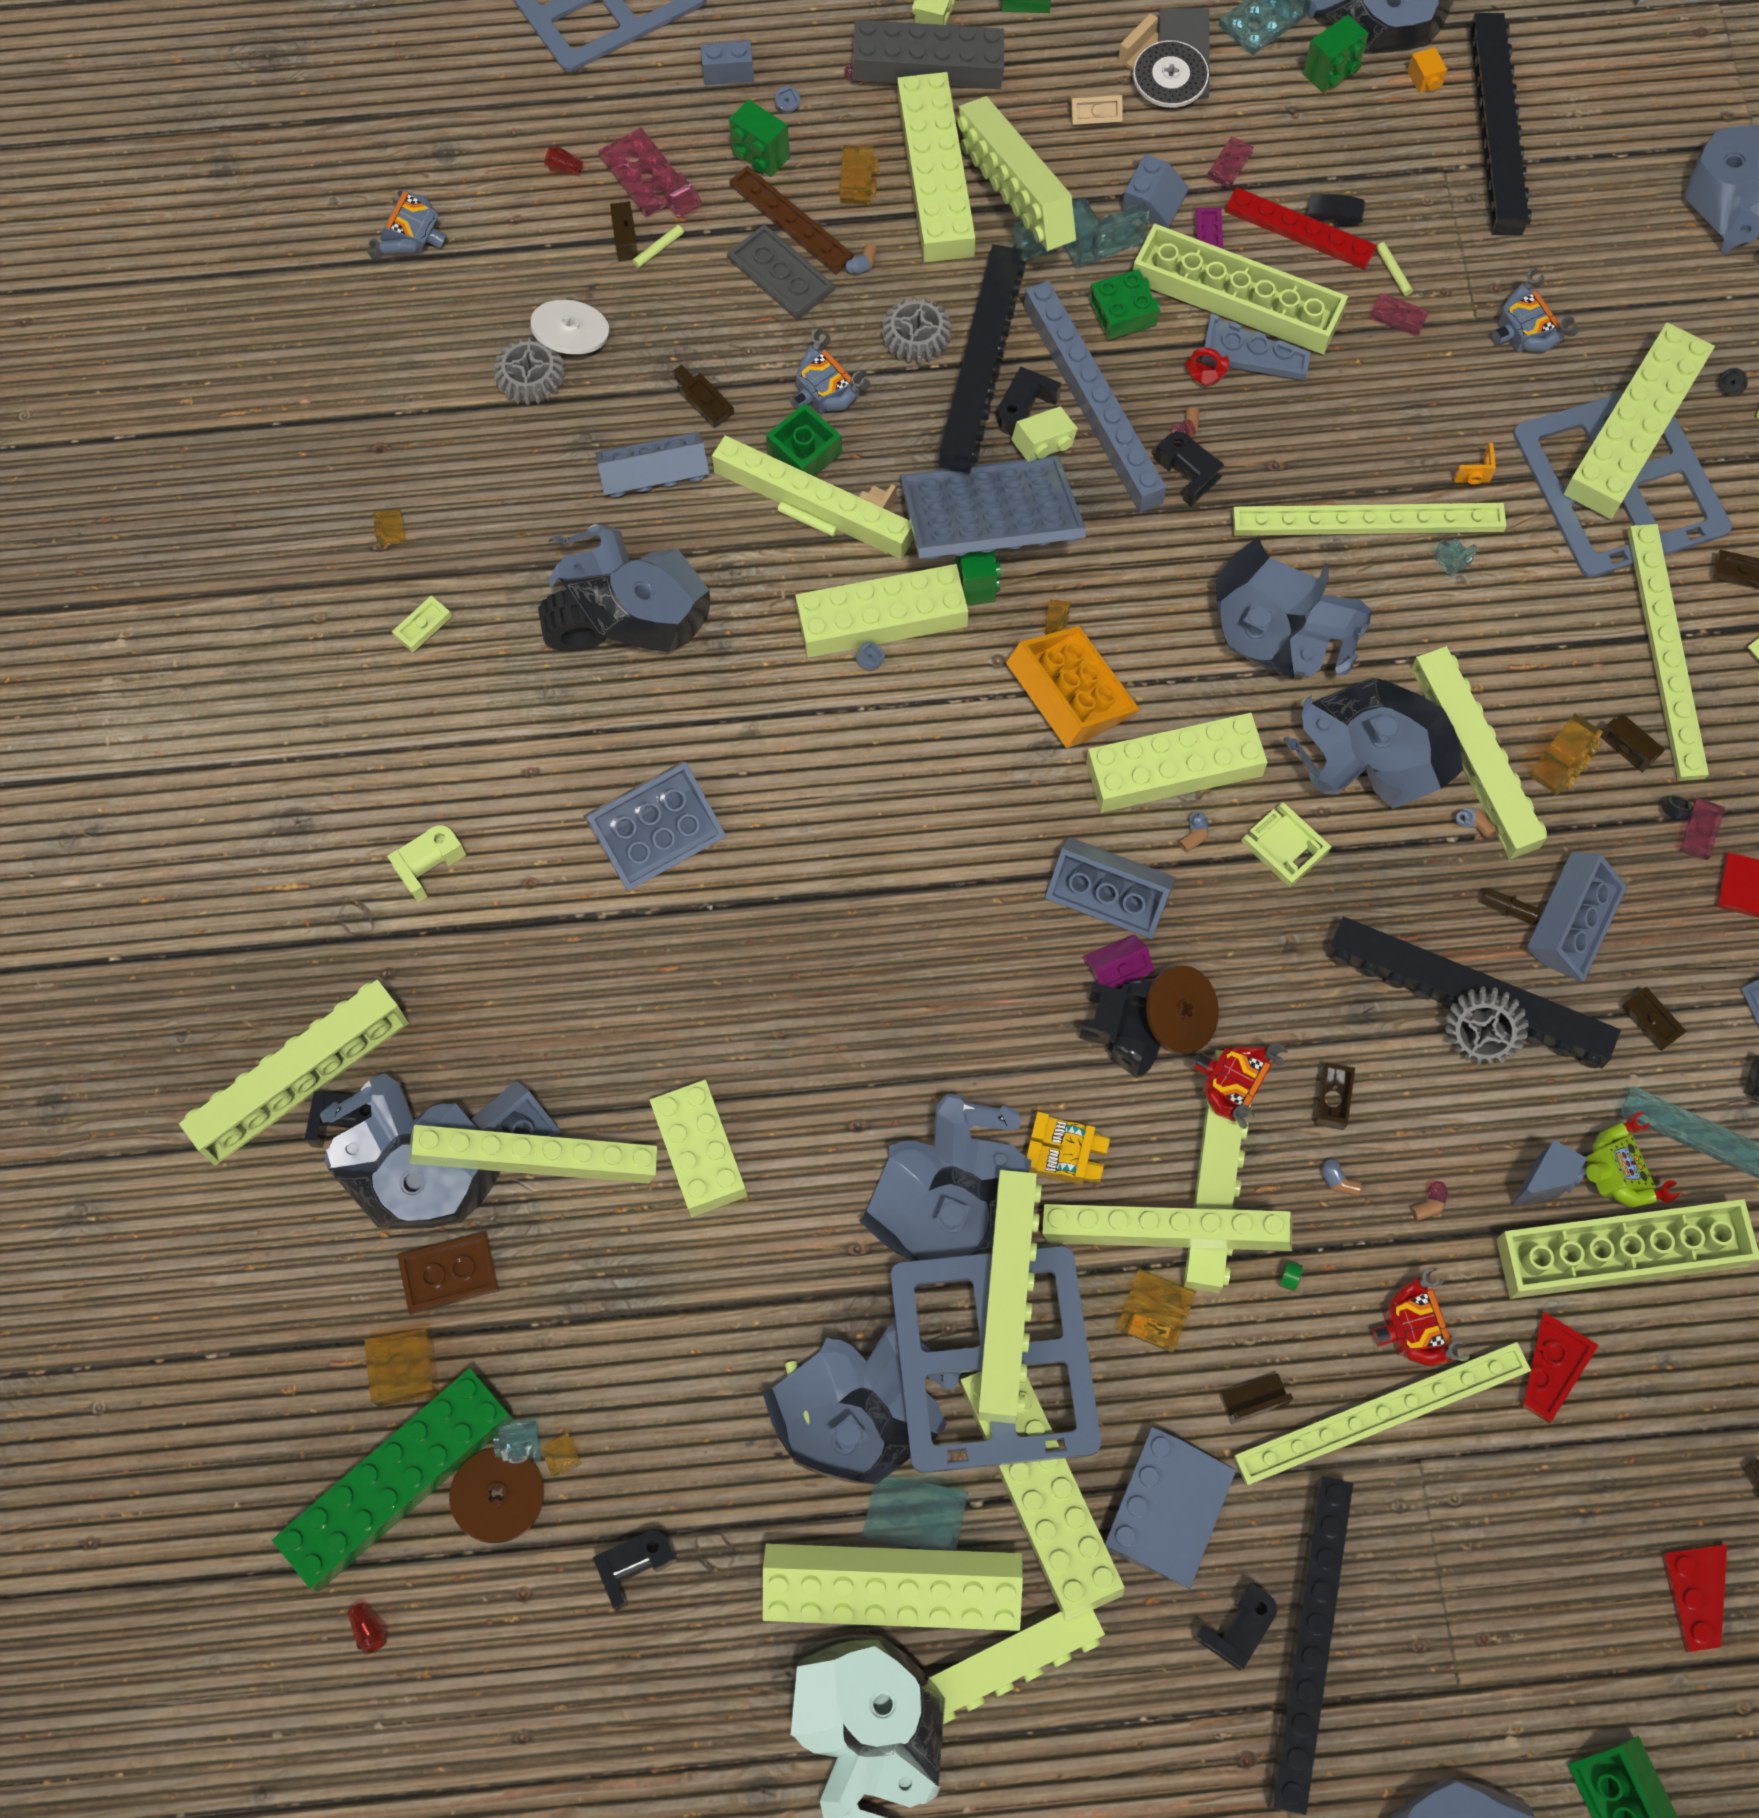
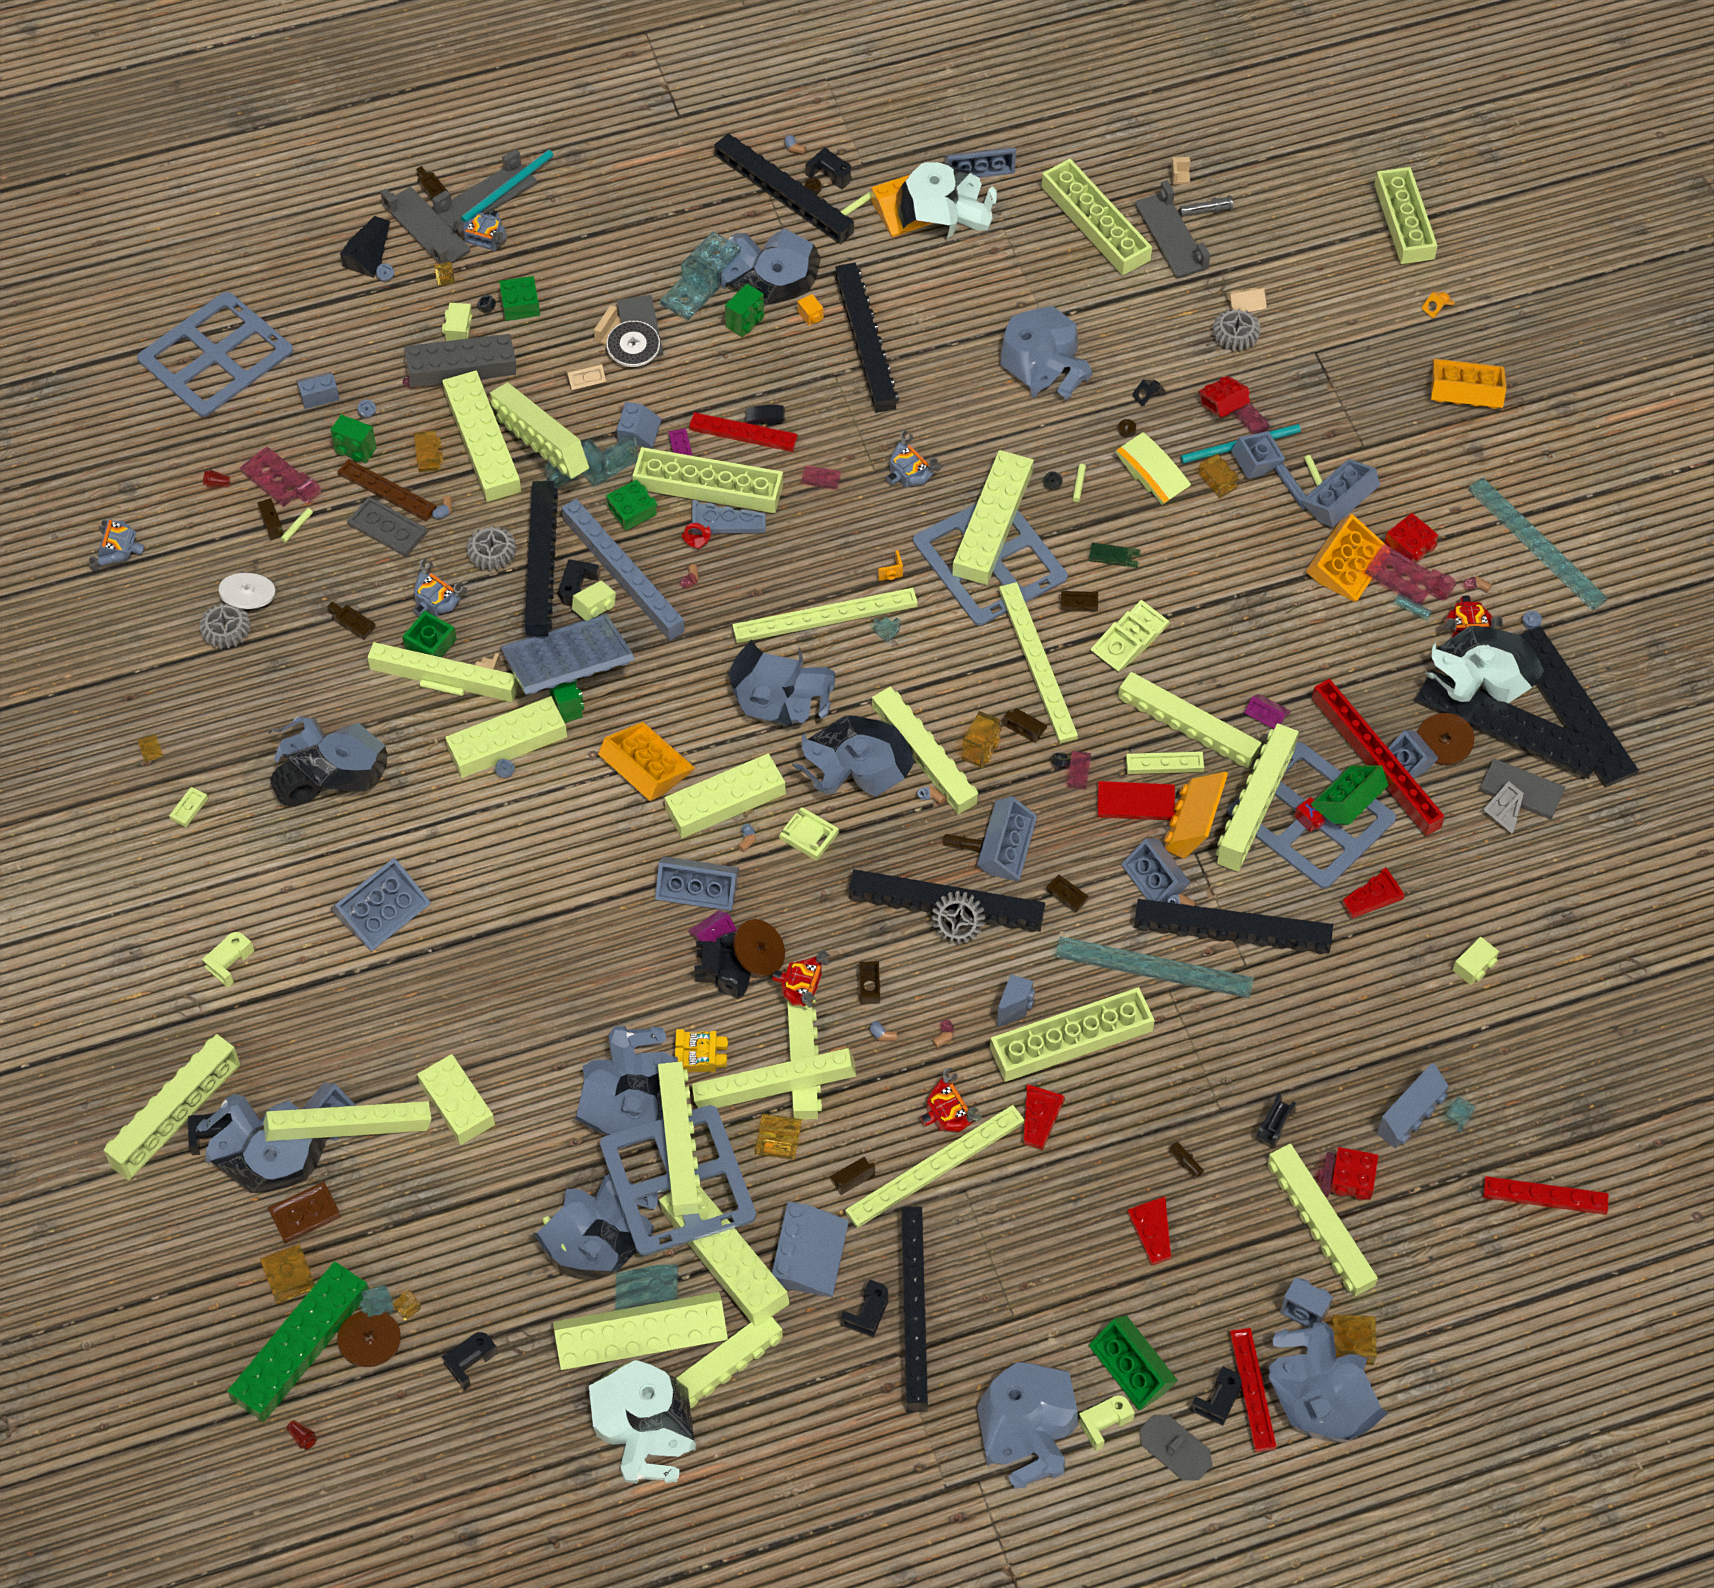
camera: 15 degrees left, 10 degrees down
(652, 464) = (326, 671): sand blue slope -> none
(1057, 616) = (627, 717): clear yellow slope -> none
(1192, 462) = (698, 600): black piece -> none
(1230, 162) = (686, 396): clear pink plate -> none
(1291, 1275) = (861, 1096): green piece -> none
(1394, 269) = (813, 448): yellowish green piece -> none
(1620, 1168) = (1059, 986): lime torso -> none

